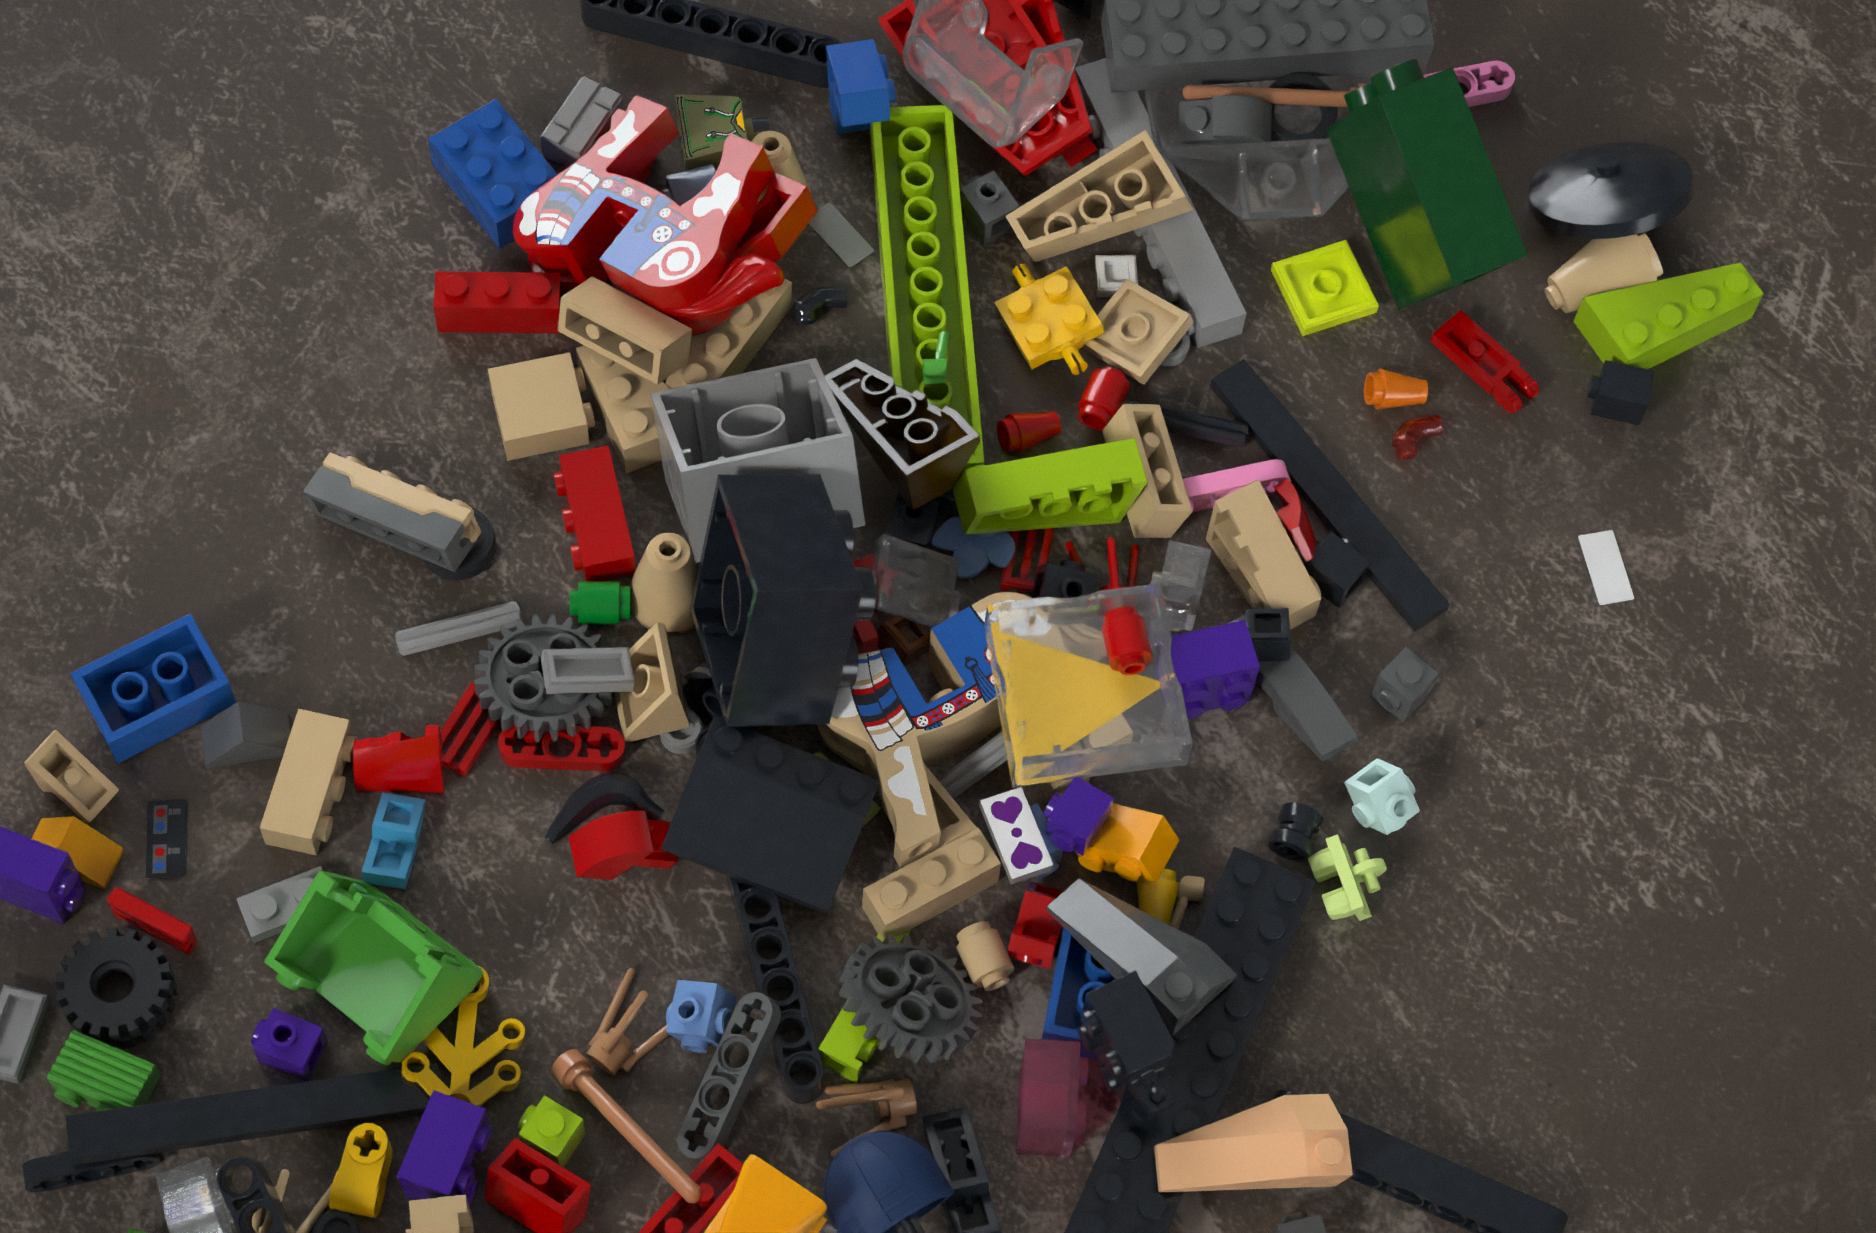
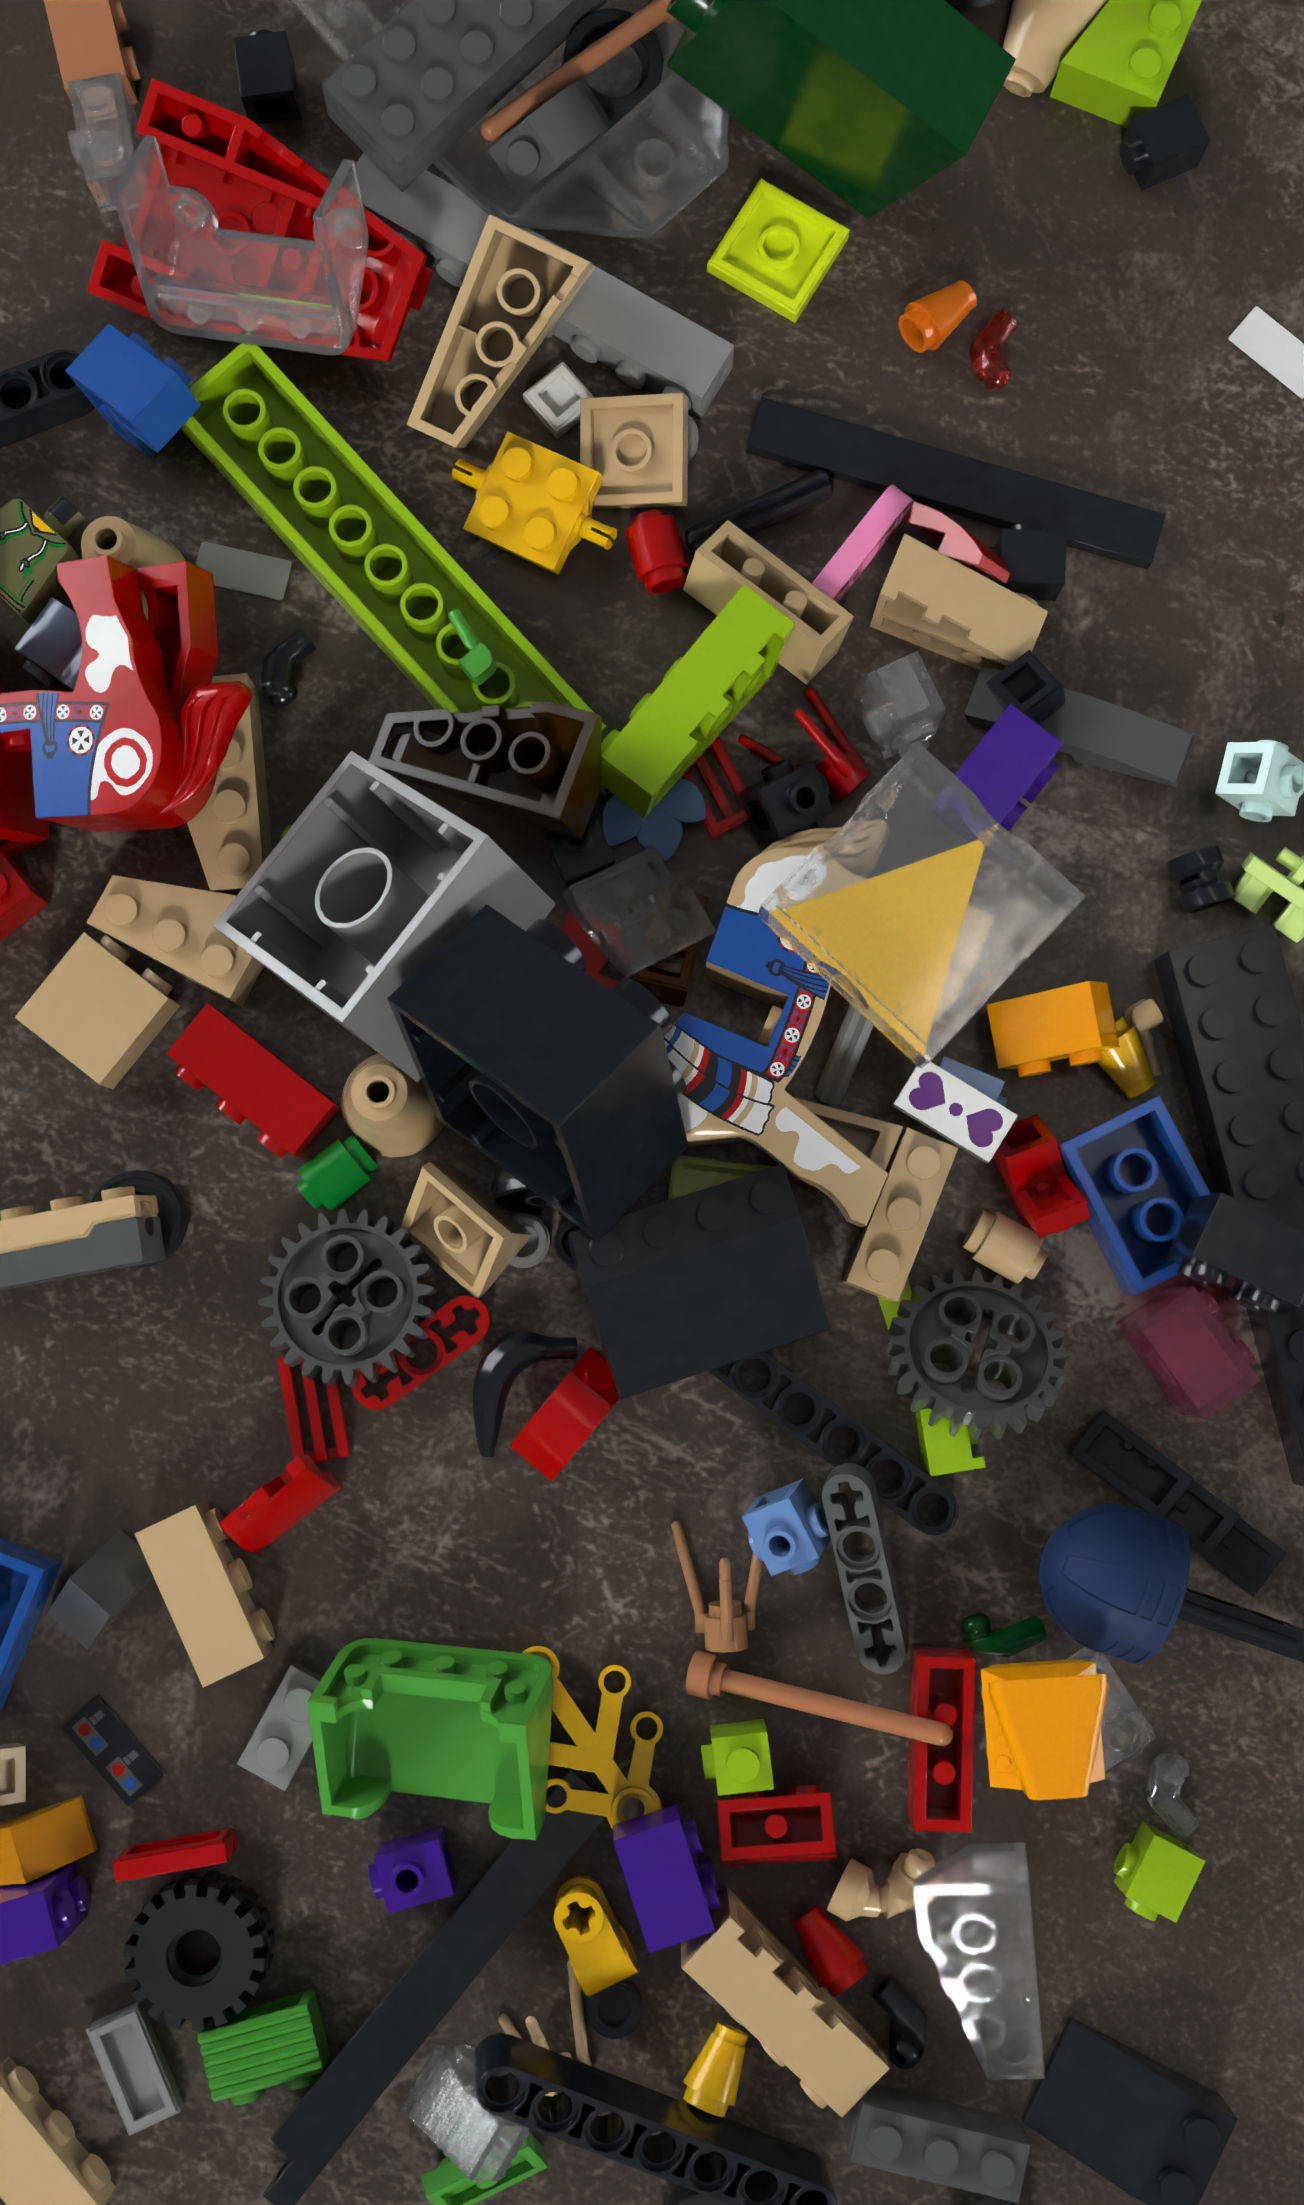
camera: 30 degrees left, 20 degrees up
(393, 840) = (338, 1578): dark azure slope -> none
(457, 628) = (215, 1309): light grey axle -> none
(587, 670) = (389, 1265): light grey tile -> none
(624, 330) = (123, 869): tan brick -> none
(890, 1098) = (1033, 1464): medium nougat plant -> none
(985, 206) = (372, 422): dark grey brick -> none
(1024, 430) = (606, 649): red cone -> none
(1077, 816) = (1003, 1047): dark purple brick -> none
(1126, 640) = (923, 827): red brick -> none
(1172, 965) = (1190, 1137): dark grey wedge -> none
(1404, 684) = (1191, 639): dark grey brick -> none
(1484, 361) = (1001, 212): red hinge -> none

